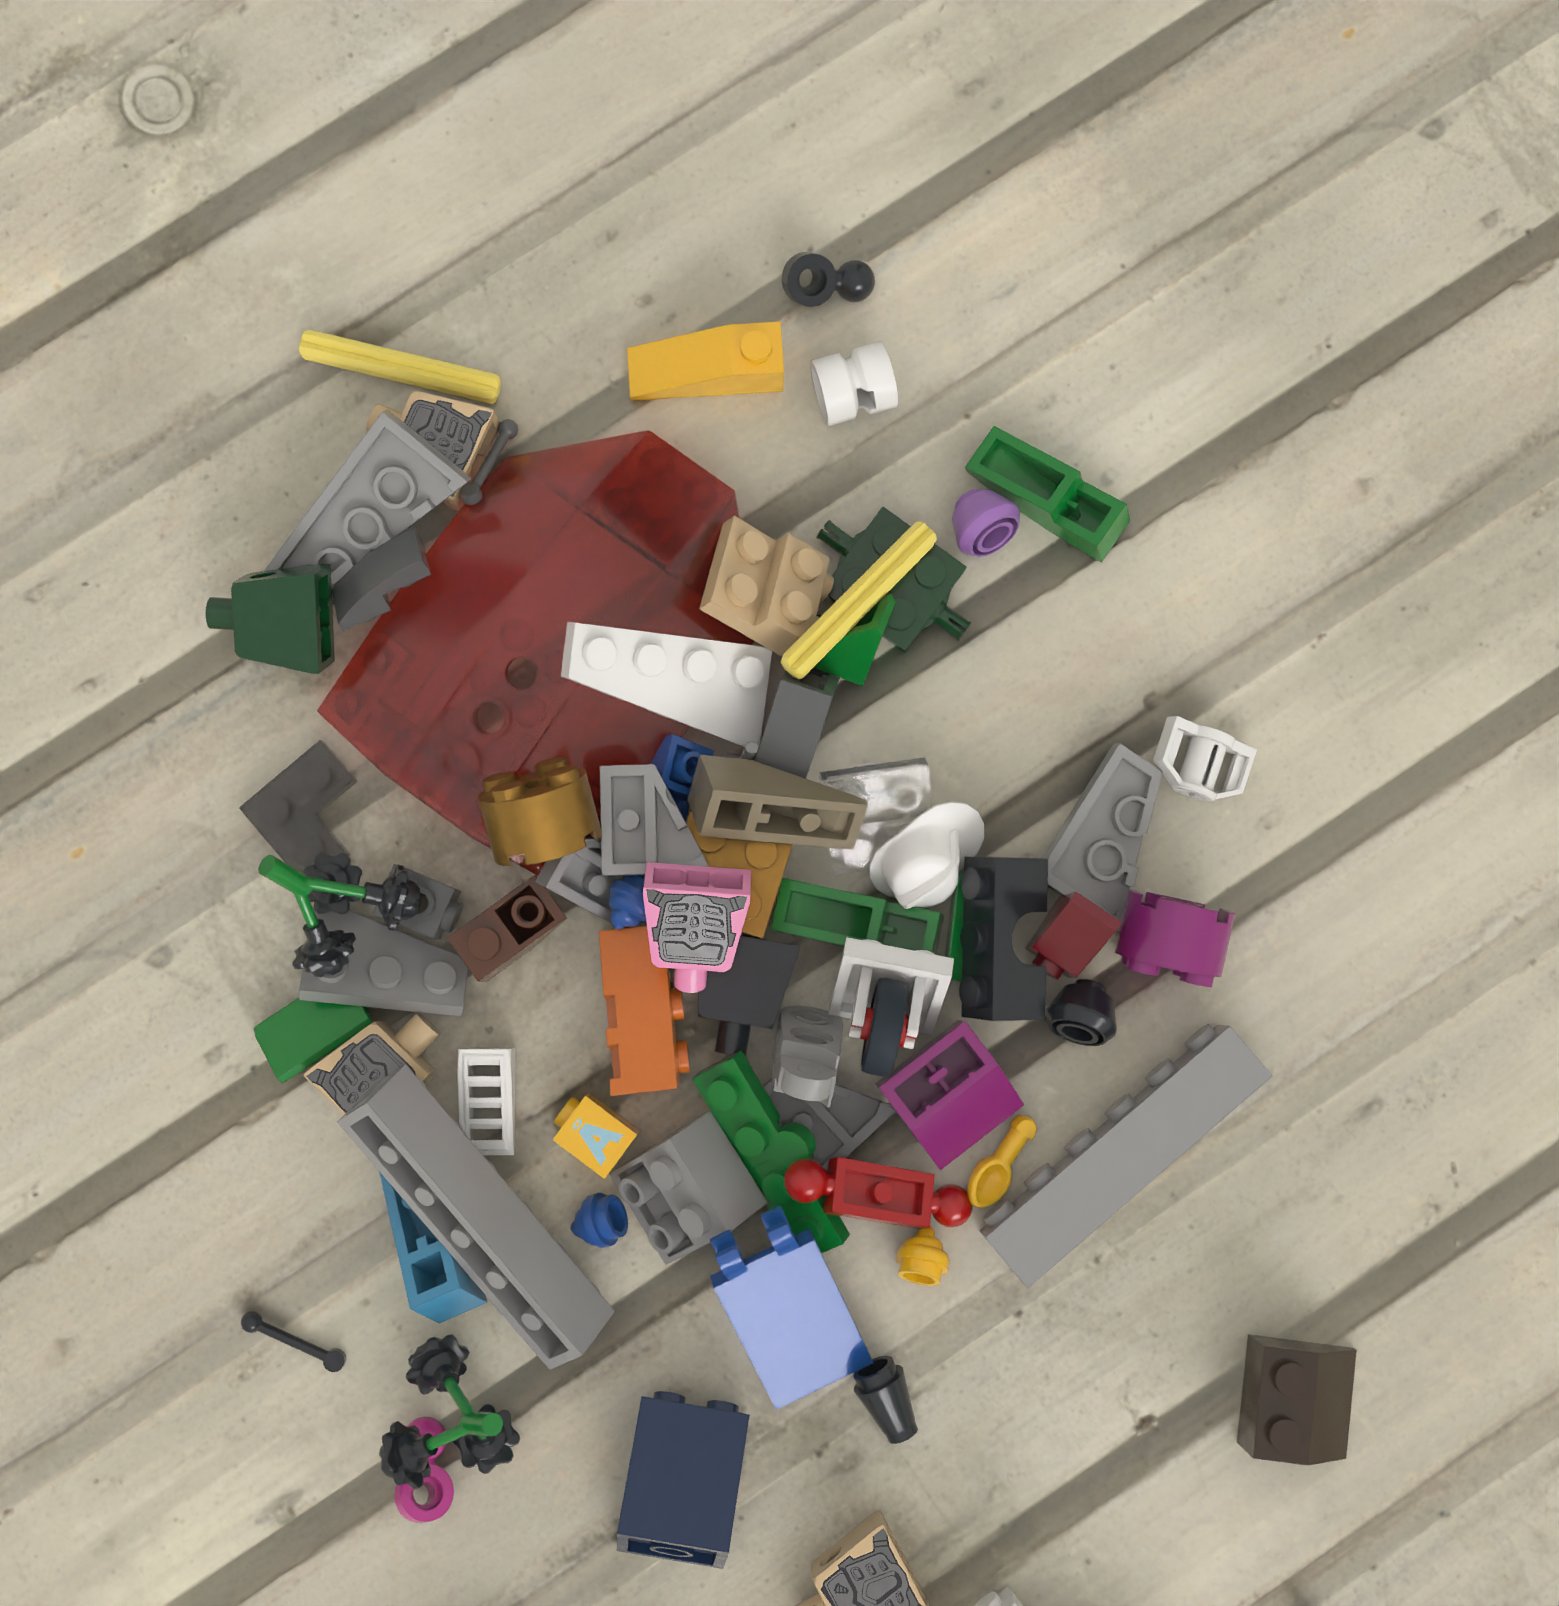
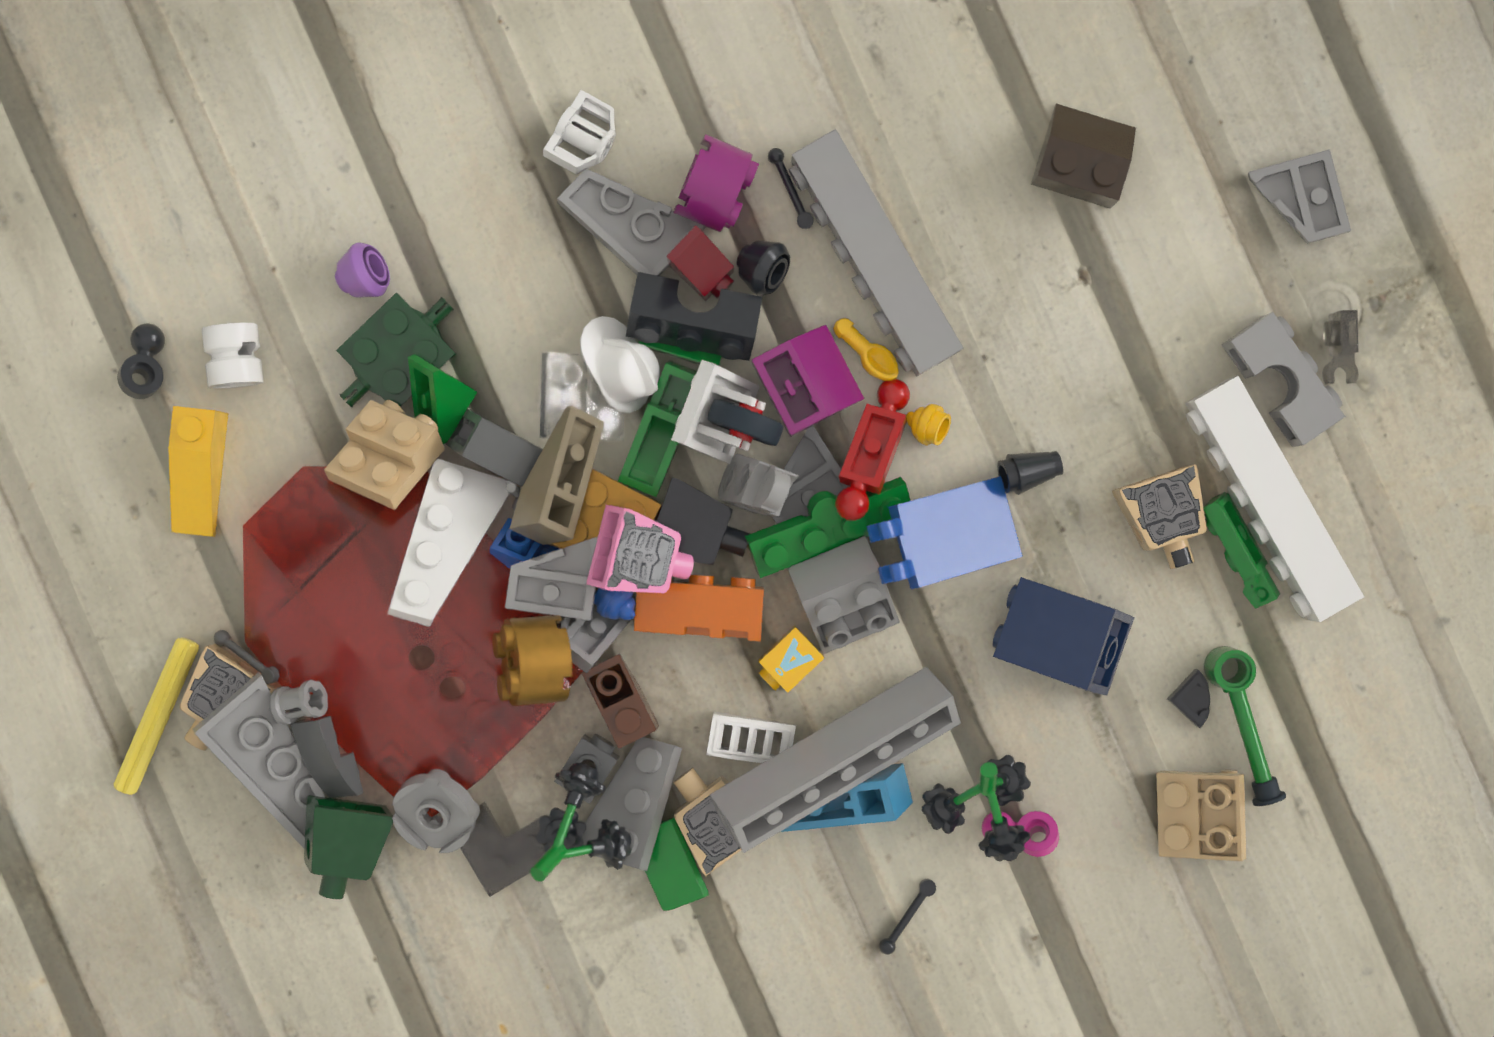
camera: 70 degrees left, 5 degrees up
(355, 727) = (445, 795): none -> light grey plate
(442, 533) = (299, 702): none -> light grey bush
(600, 1220) = (857, 666): blue plate -> none
(858, 600) = (408, 383): light yellow axle -> none
(1049, 493) = (347, 215): green slope -> none
(1149, 1055) = (804, 219): none -> black hinge

